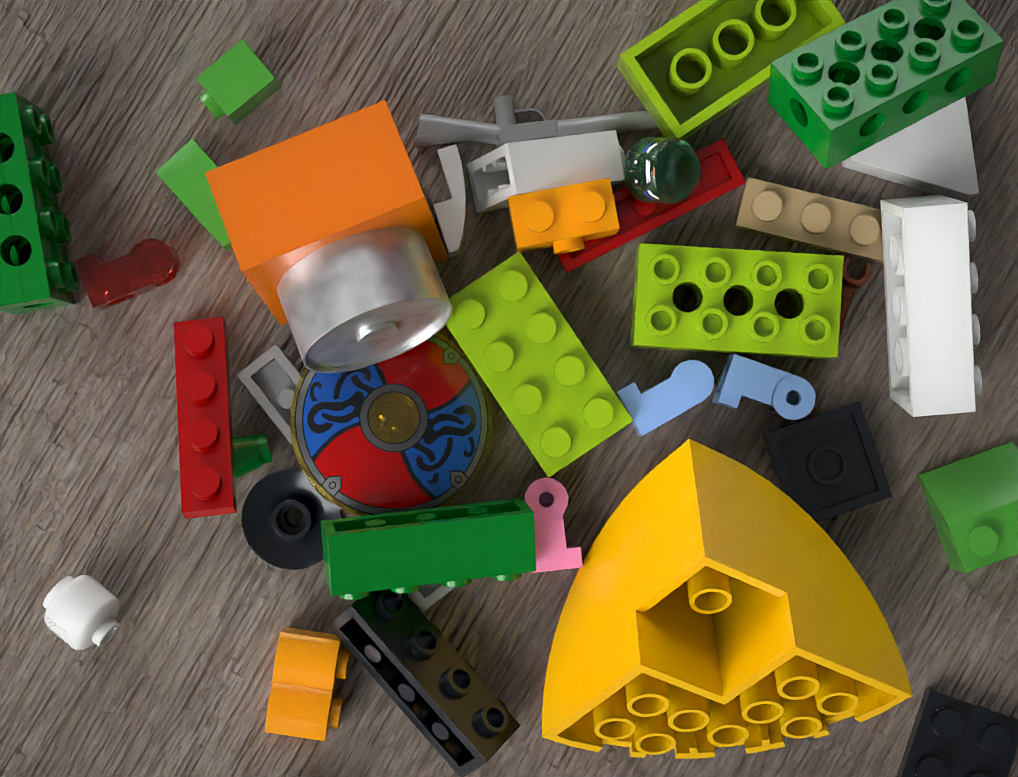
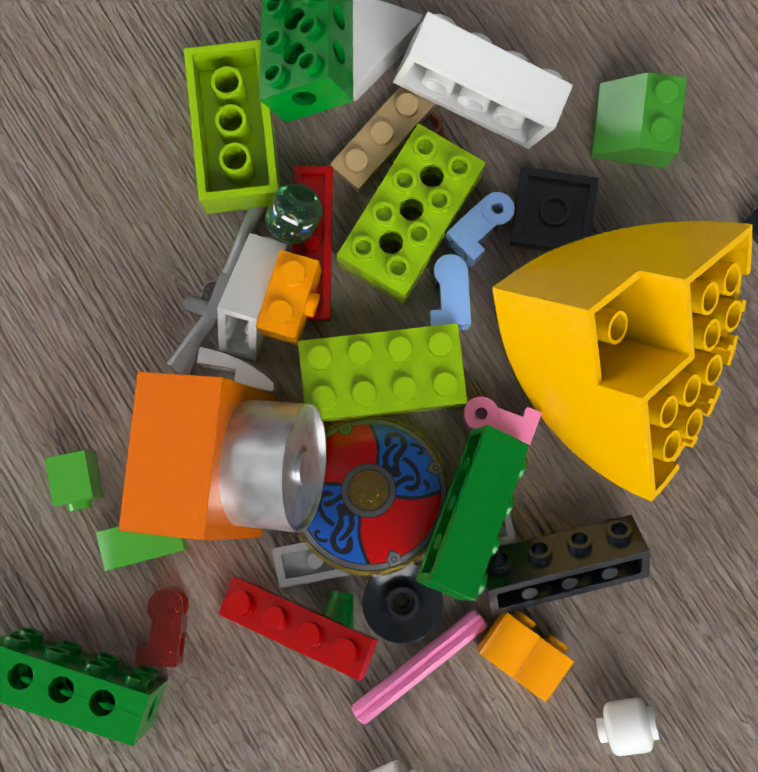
camera: 60 degrees left, 5 degrees down
(232, 574) = (418, 667): none -> bright pink axle

